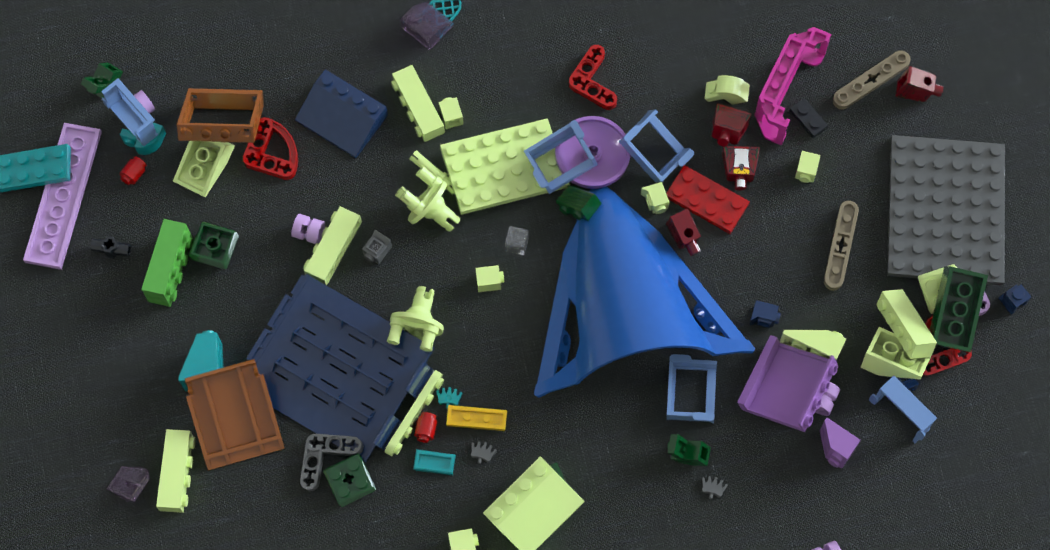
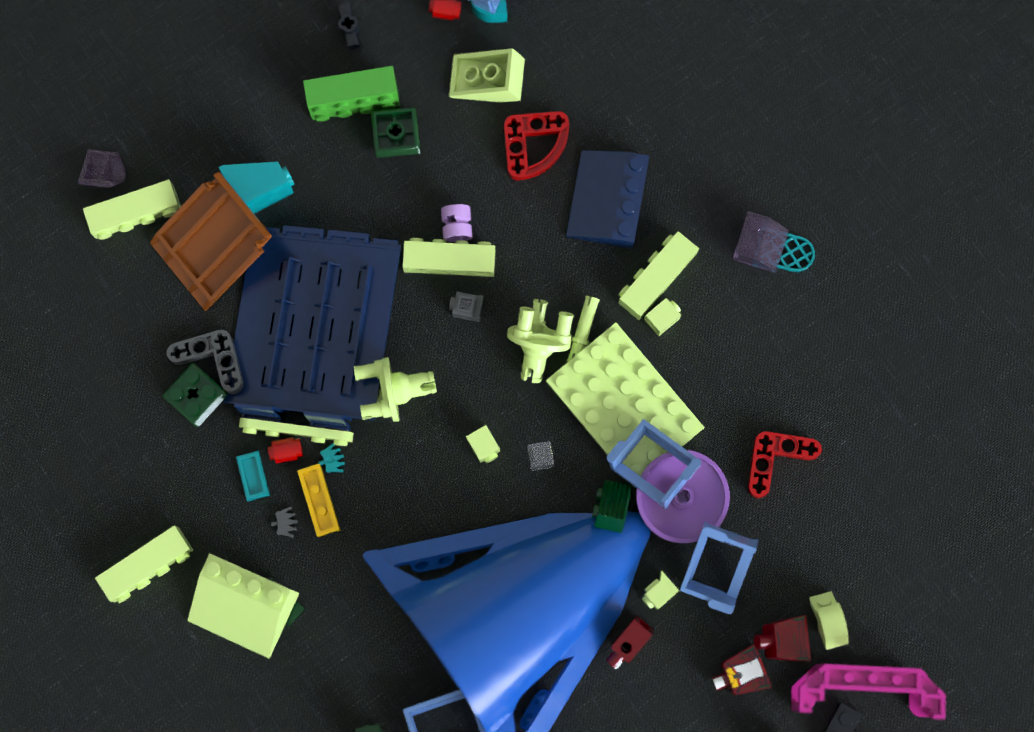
camera: 65 degrees right, 10 degrees up
(220, 100) = (566, 57): dark orange window -> none
(707, 199) = (685, 650): red plate -> none

